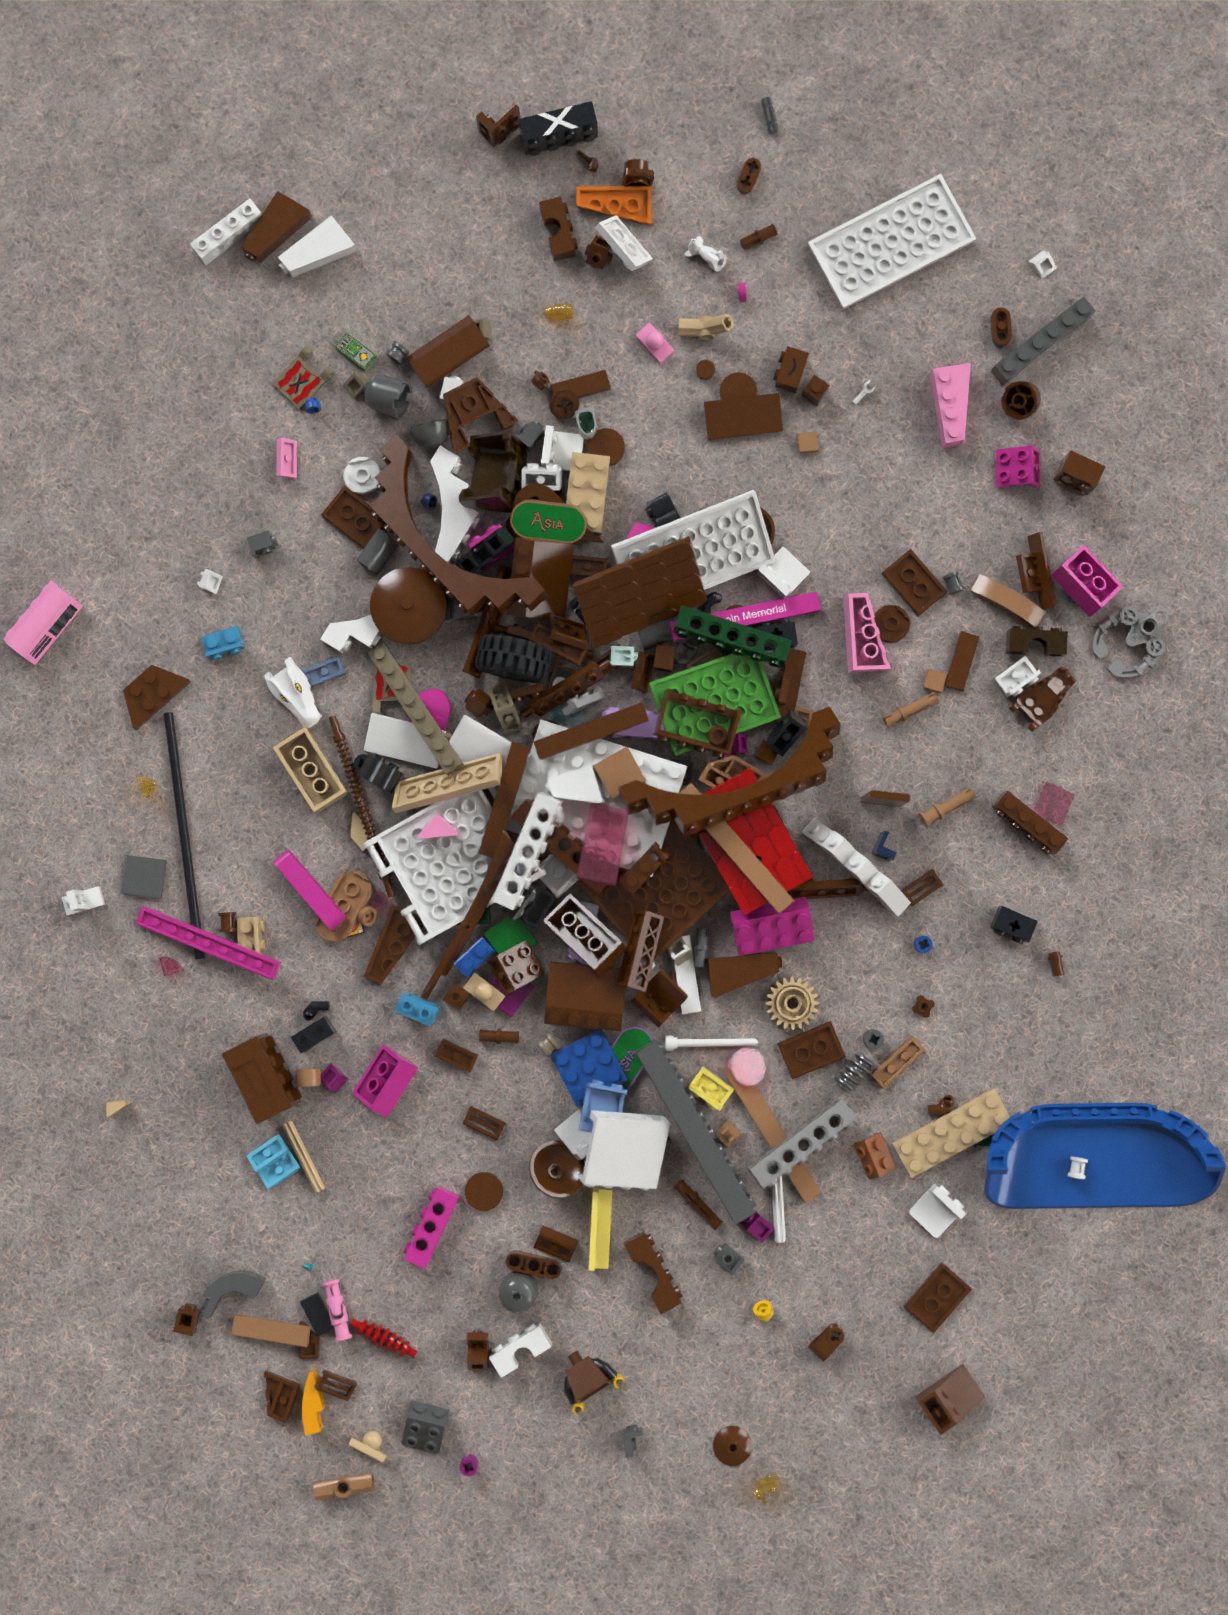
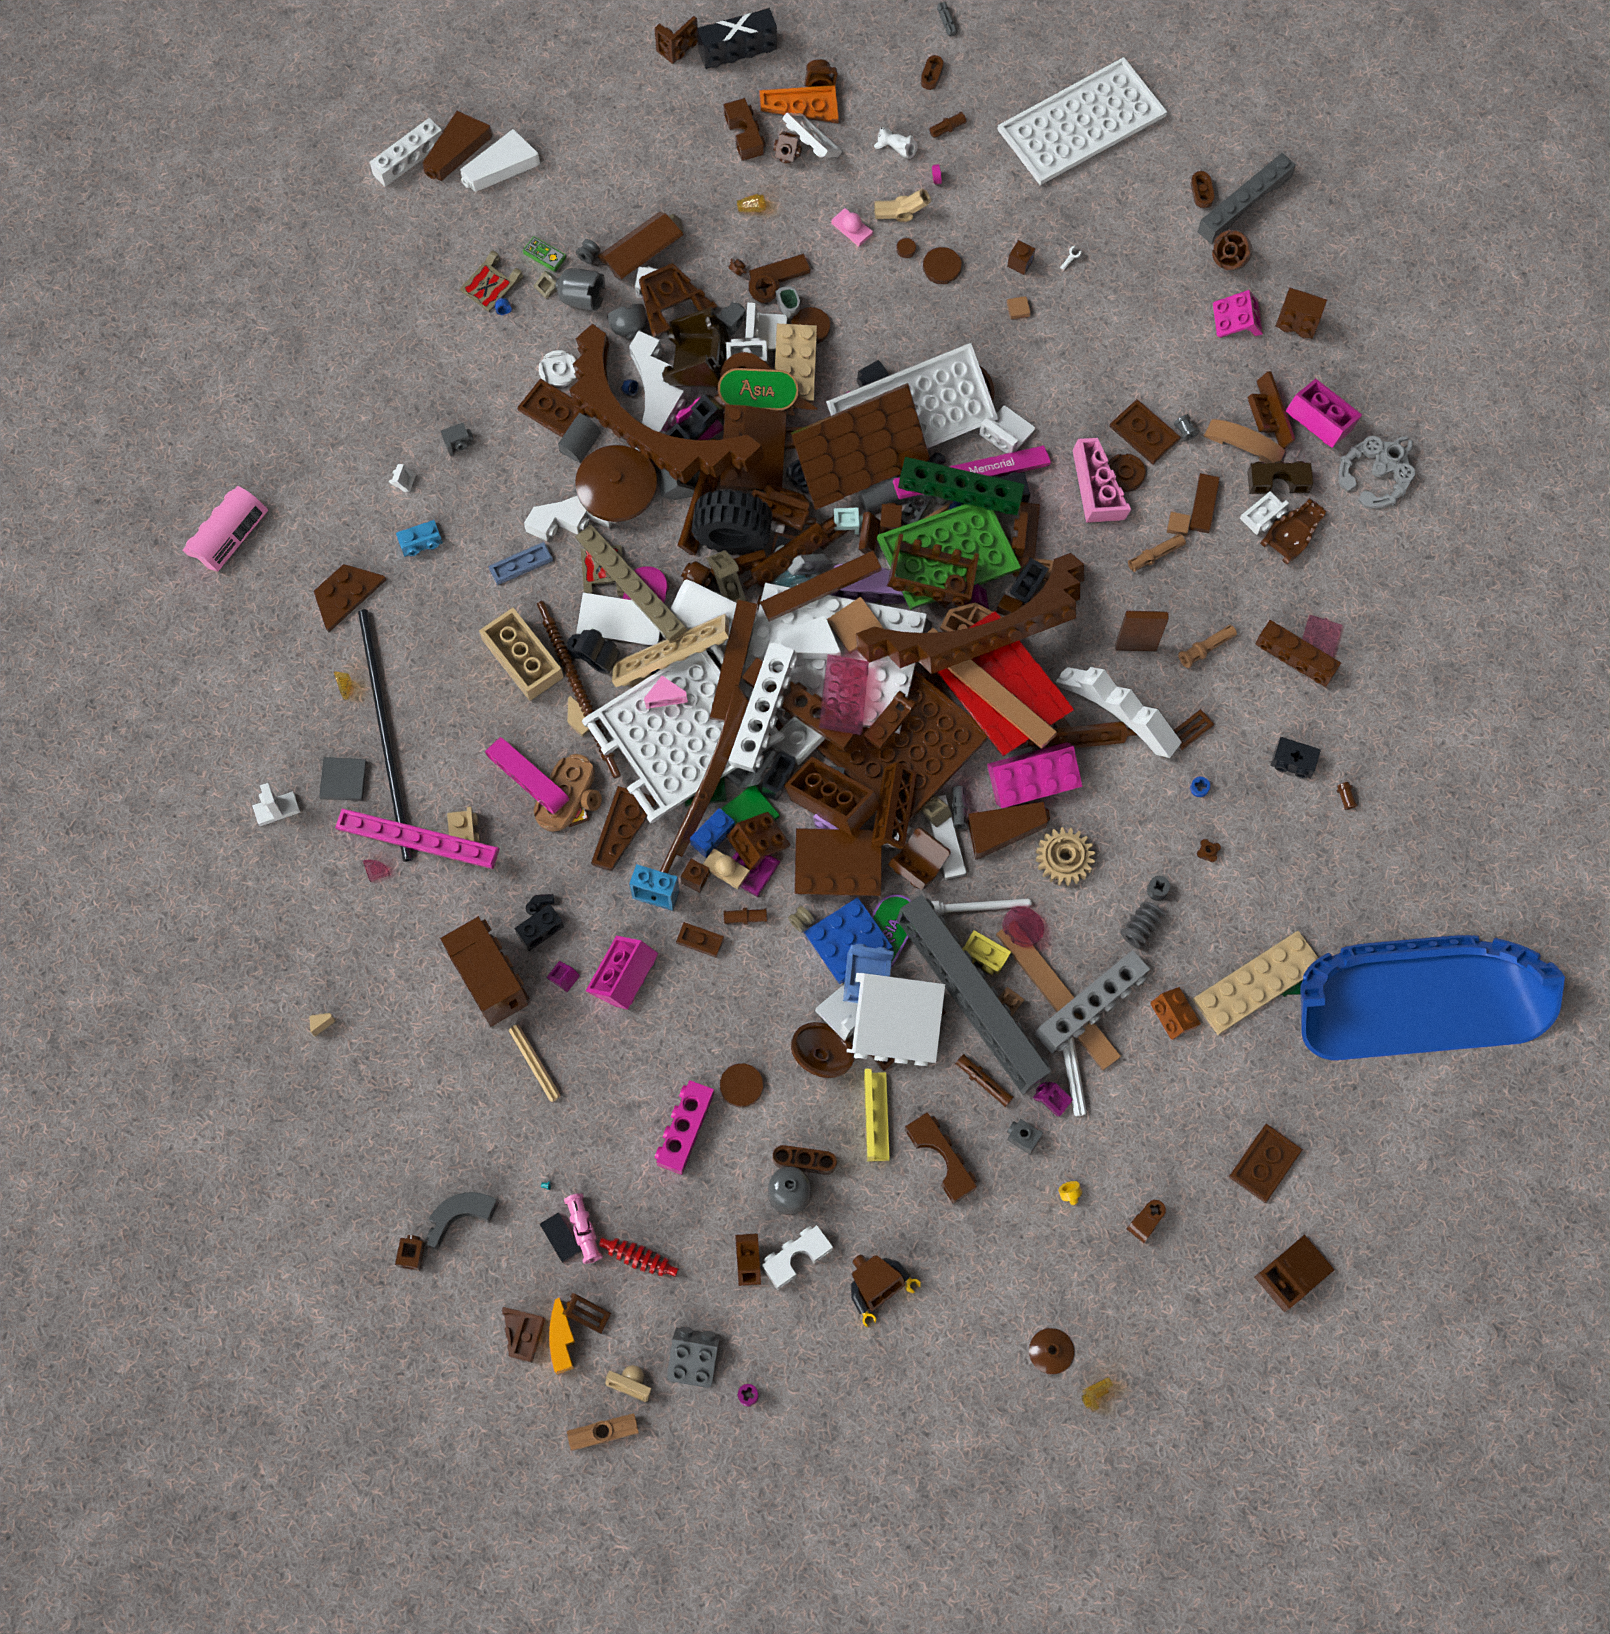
camera: 10 degrees left, 15 degrees down
(227, 921) = (437, 817): reddish brown bush -> none
(271, 1330) = (508, 1258): medium nougat tile -> none
(274, 1162) = (501, 1071): medium azure slope -> none
(286, 458) = (478, 356): bright pink plate -> none
(294, 692) = (497, 579): white animal -> none
(308, 1077) = (535, 973): medium nougat piece -> none
(312, 1351) = (552, 1271): reddish brown tile -> none
(378, 901) = (602, 784): clear pink tile -> none
(488, 1116) = (752, 1018): reddish brown tile -> none
(556, 1243) = (827, 1138): reddish brown slope -> none
(592, 162) = (773, 70): reddish brown hand -> none
(630, 1443) = (933, 1355): dark grey bracket -> none
(743, 416) = (949, 286): reddish brown tile -> none
(791, 370) = (994, 240): reddish brown brick -> none
(811, 1050) = (1091, 906): reddish brown tile -> none
(881, 851) = (1146, 690): dark blue panel -> none
(897, 1062) = (1187, 912): medium nougat tile -> none
(936, 1210) = (1252, 1064): white bracket -> none
(943, 1106) = (1244, 955): reddish brown arm -> none
(950, 395) = (1160, 257): bright pink wedge -> none
(1042, 264) = (1237, 132): white slope -> none
(1077, 1167) = (1401, 1006): white bush -> none

